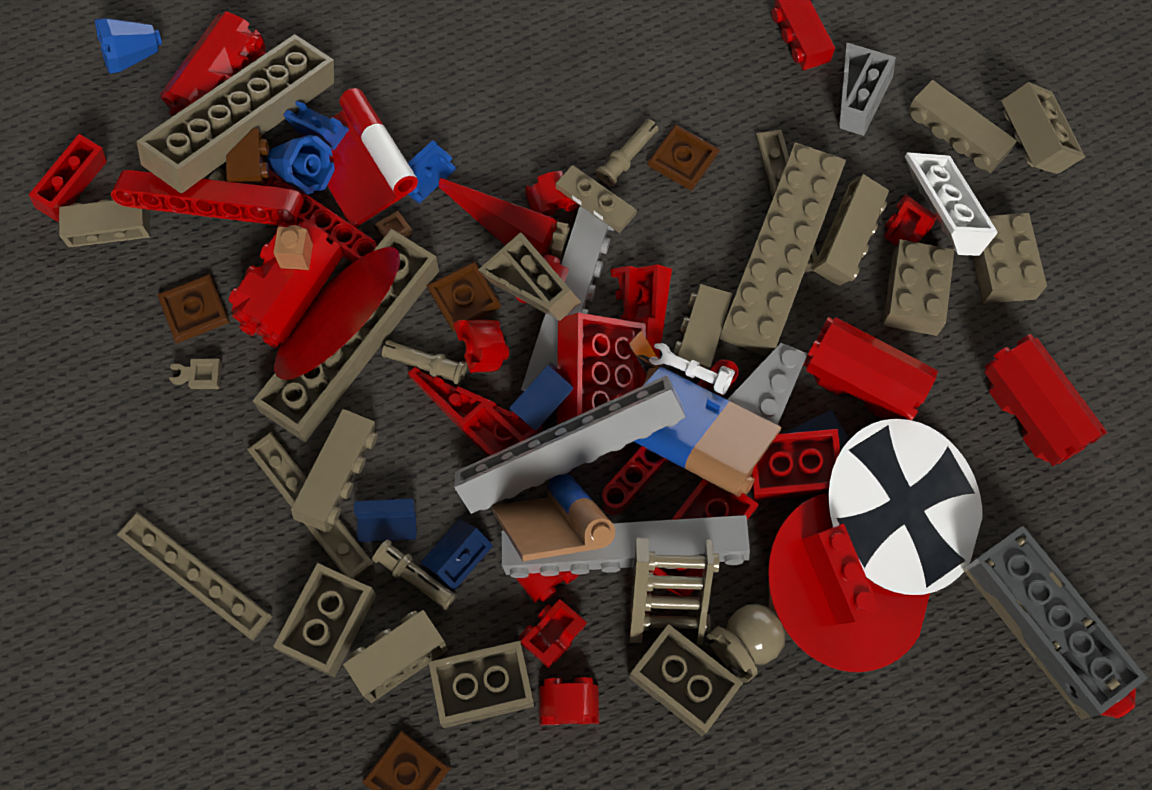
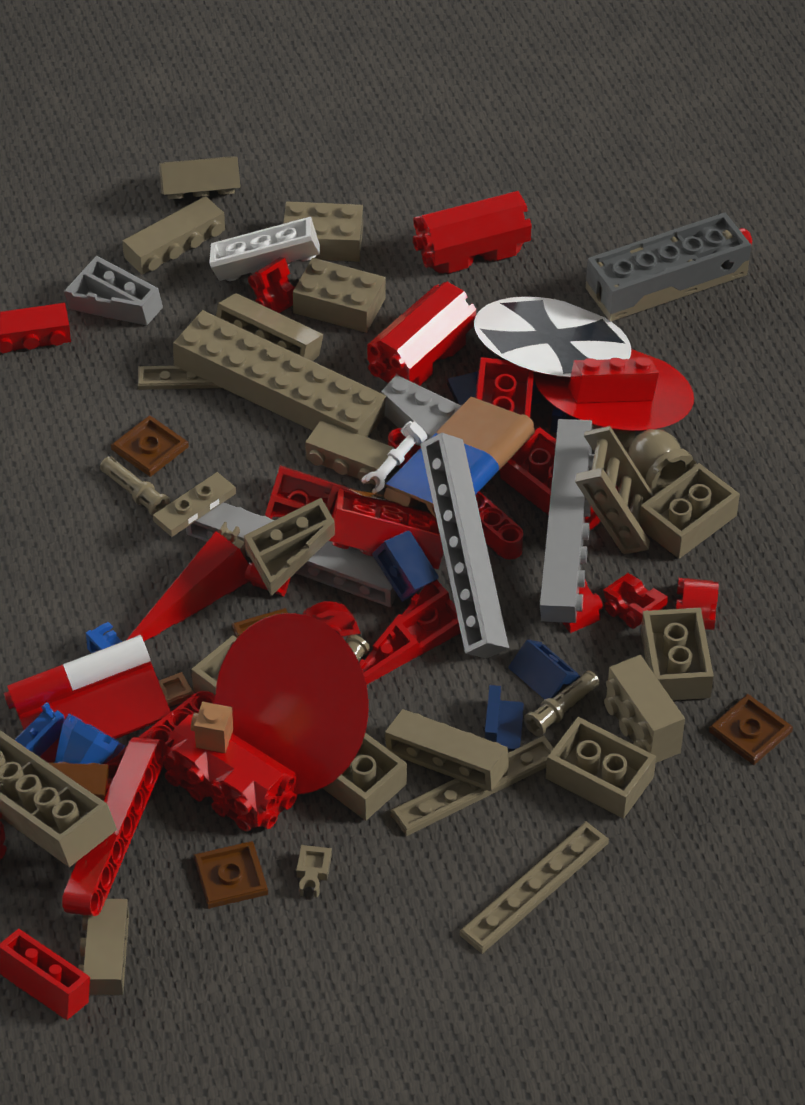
camera: 80 degrees left, 20 degrees down
(545, 198) = (170, 553): red cylinder -> none
(555, 524) = (541, 554): medium nougat door -> none

